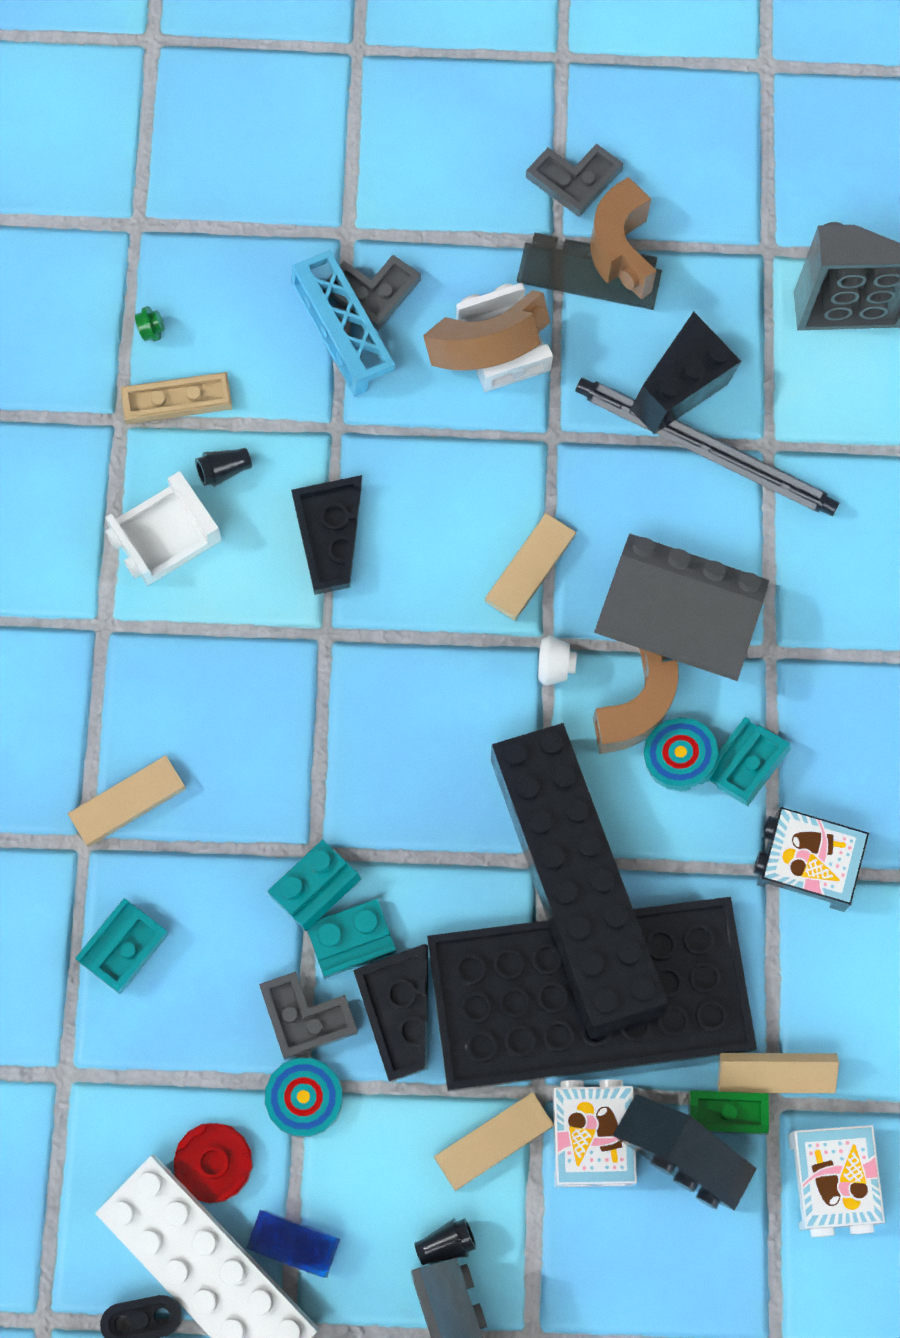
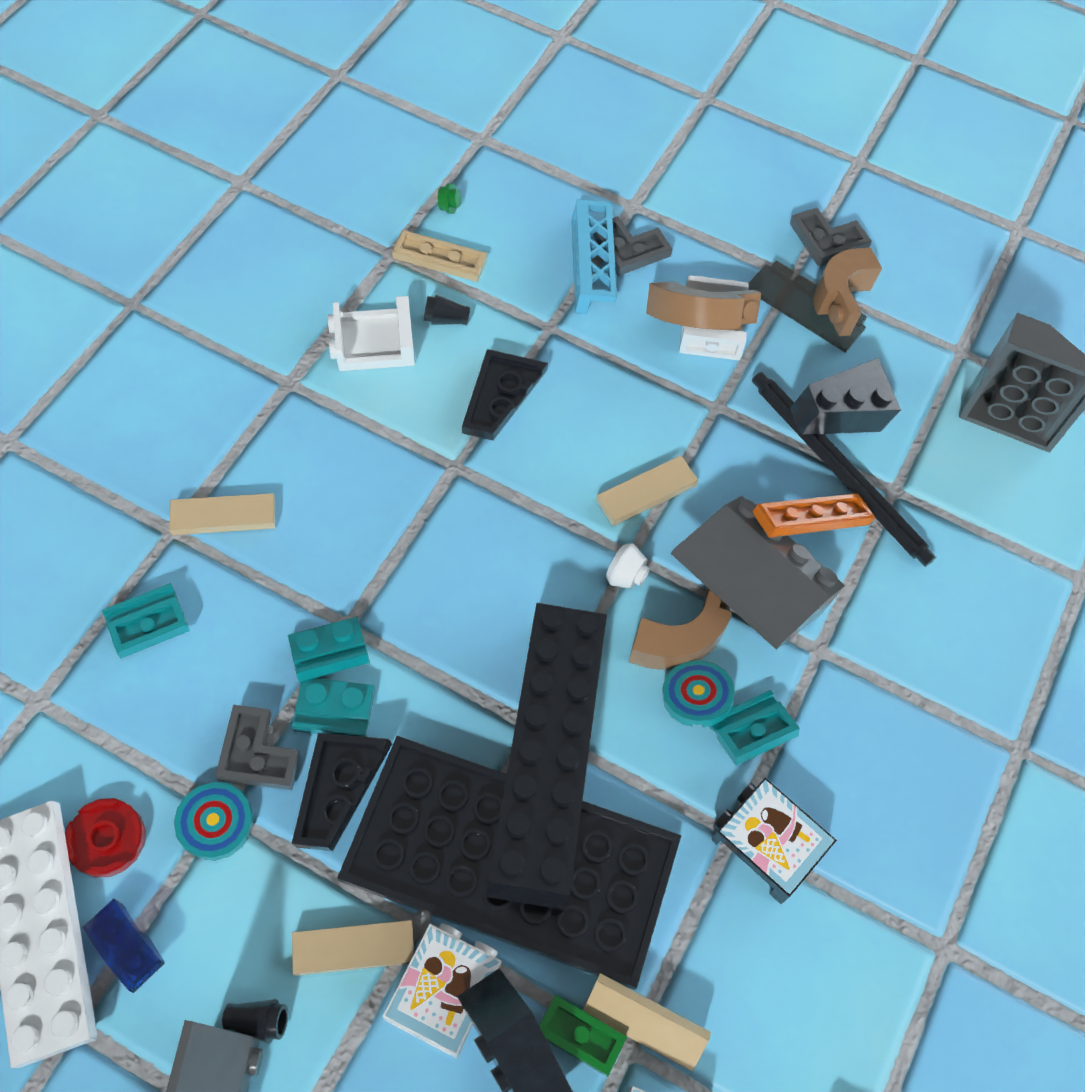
camera: 25 degrees right, 10 degrees down
(706, 519) = (813, 515): none -> orange tile

